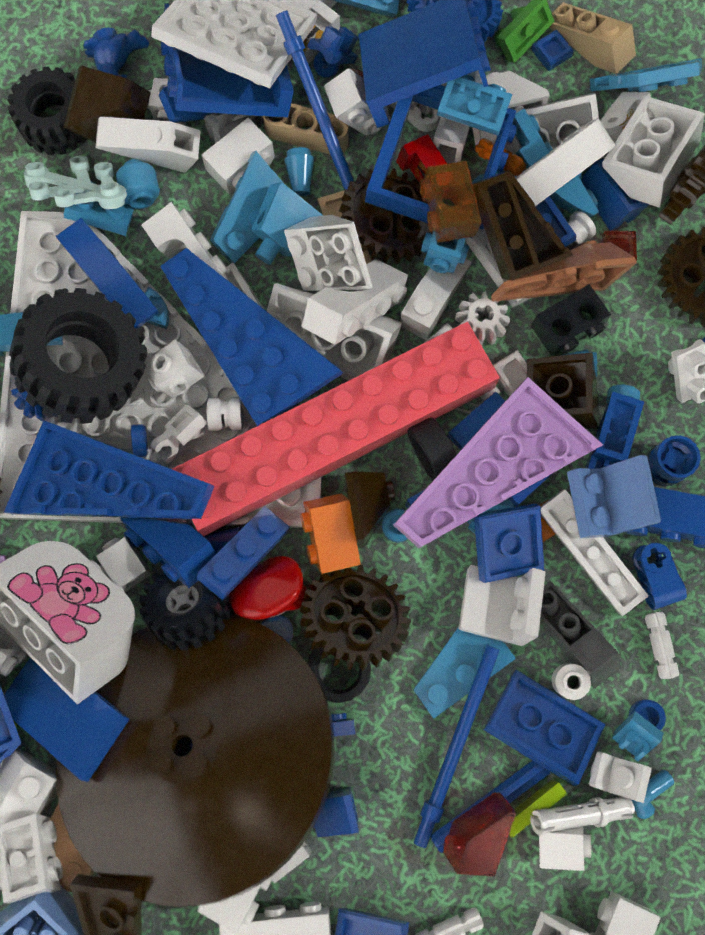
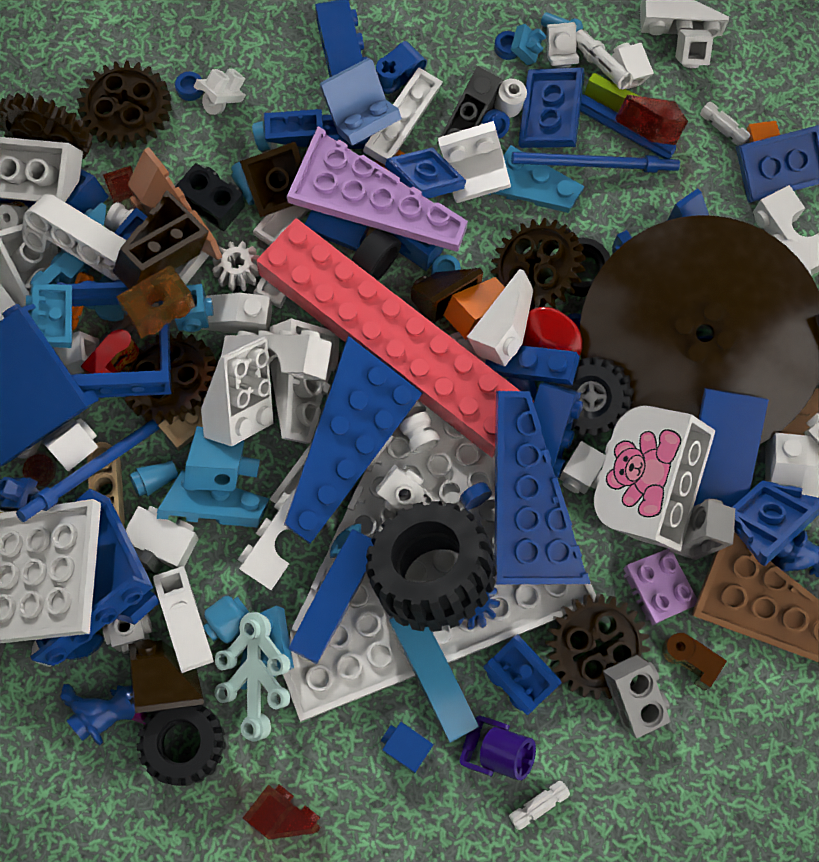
camera: 120 degrees left, 5 degrees down
(180, 429) = (448, 463): white plate -> none
(294, 540) = (504, 324): none -> white slope
(546, 651) = (500, 120): none -> blue tile
(662, 645) = (450, 50): white axle -> none
(676, 454) = (302, 82): blue wheel -> none

